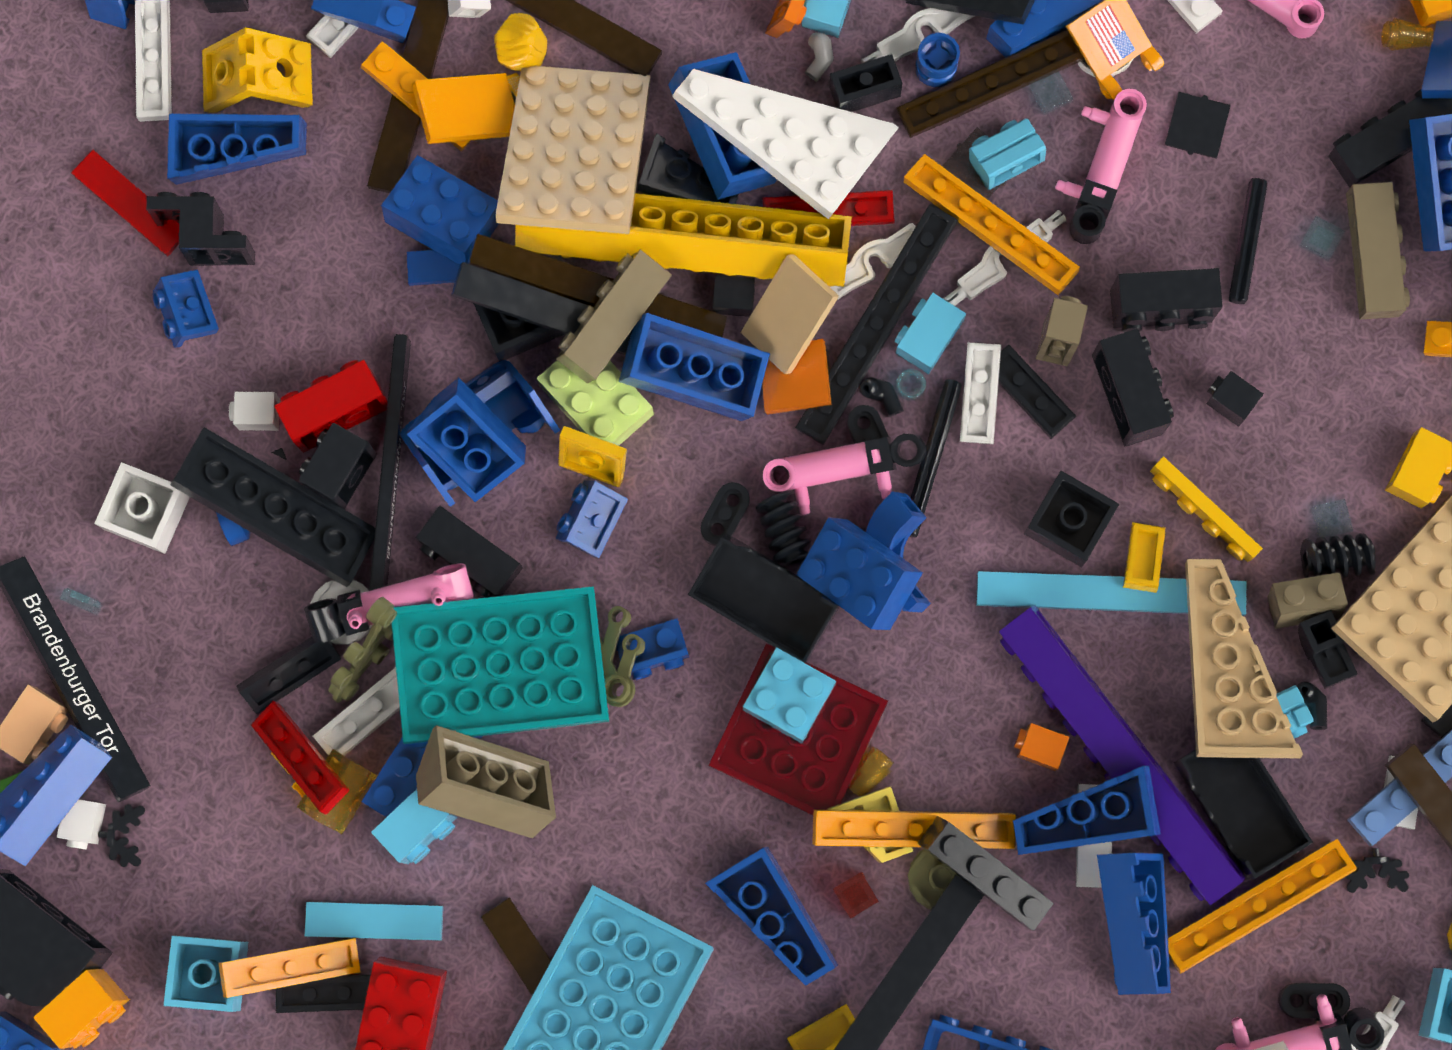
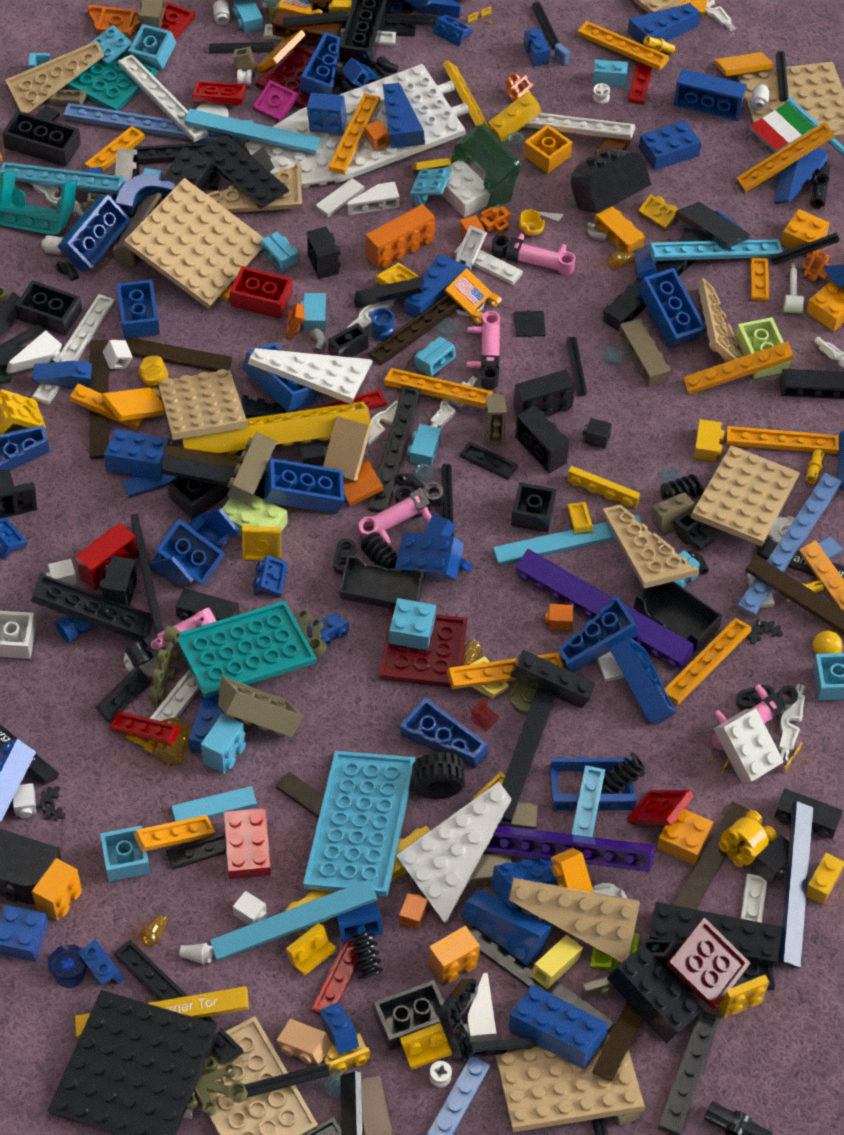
camera: 25 degrees left, 25 degrees down
(738, 998) = (438, 775): none -> black tyre
(980, 393) = (462, 466): white tile -> none

